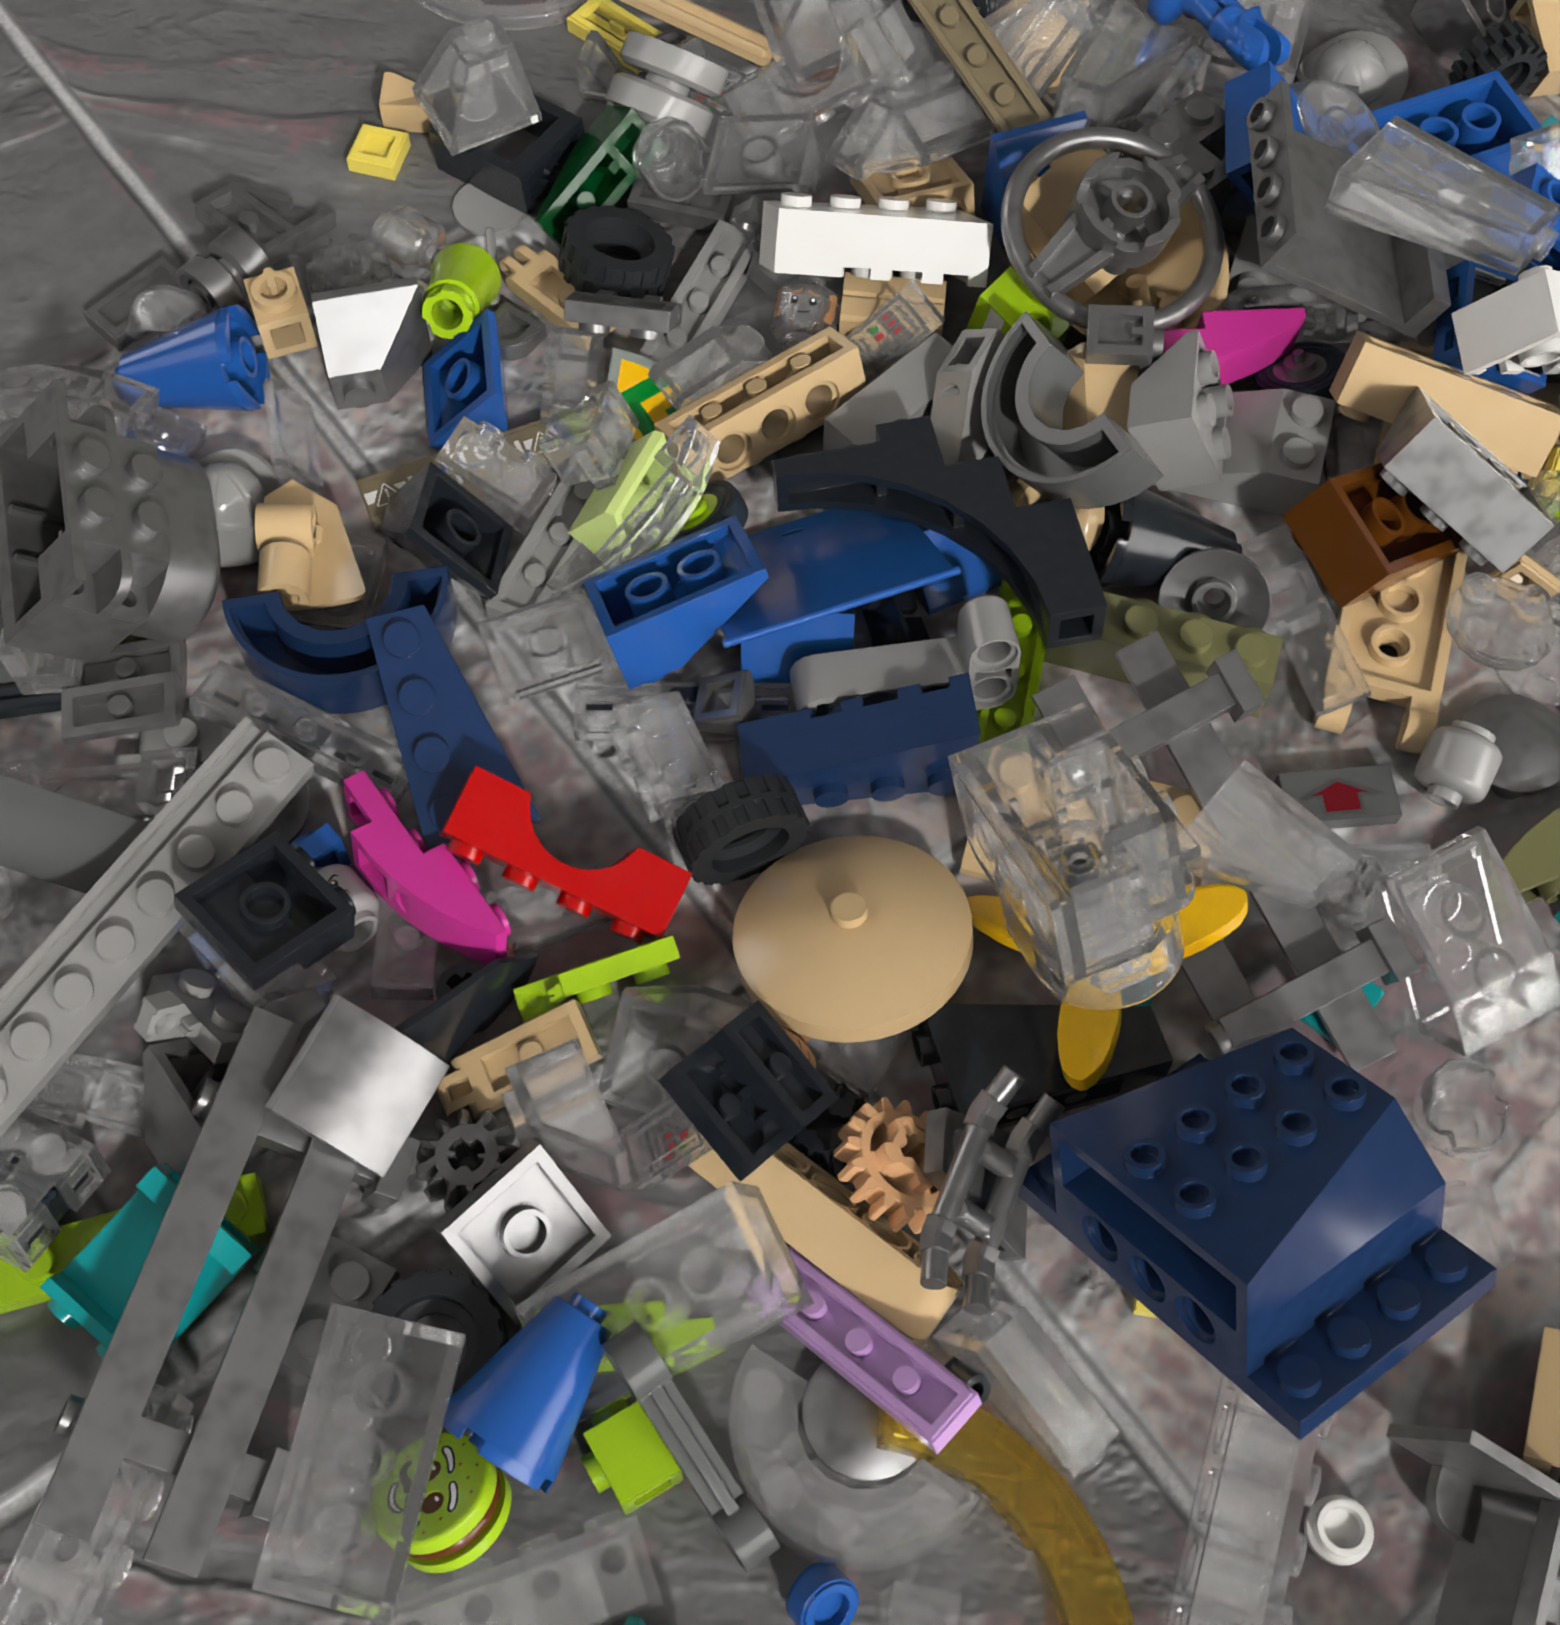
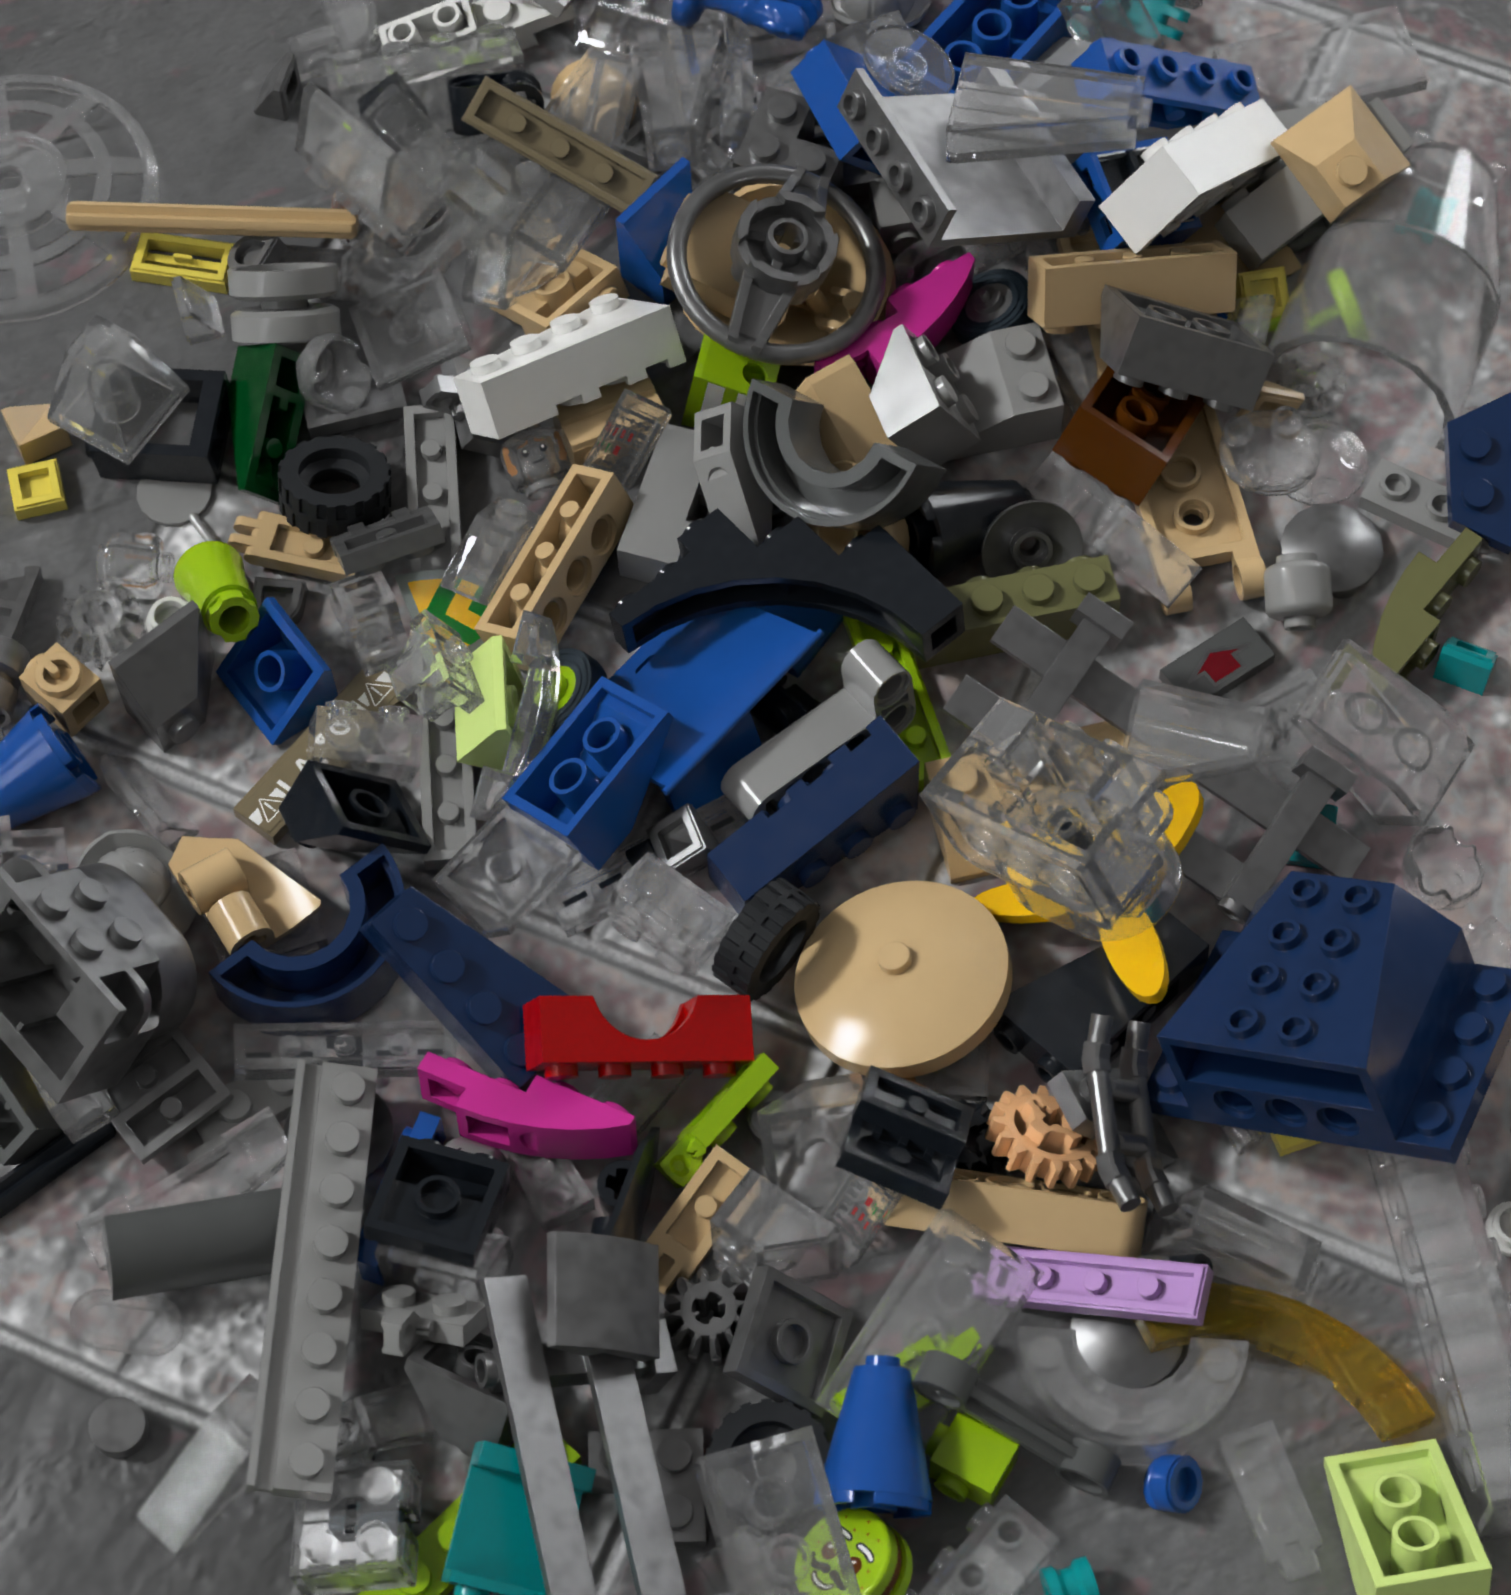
camera: 25 degrees left, 0 degrees up
(1123, 336) = (841, 358): flat silver bracket -> none

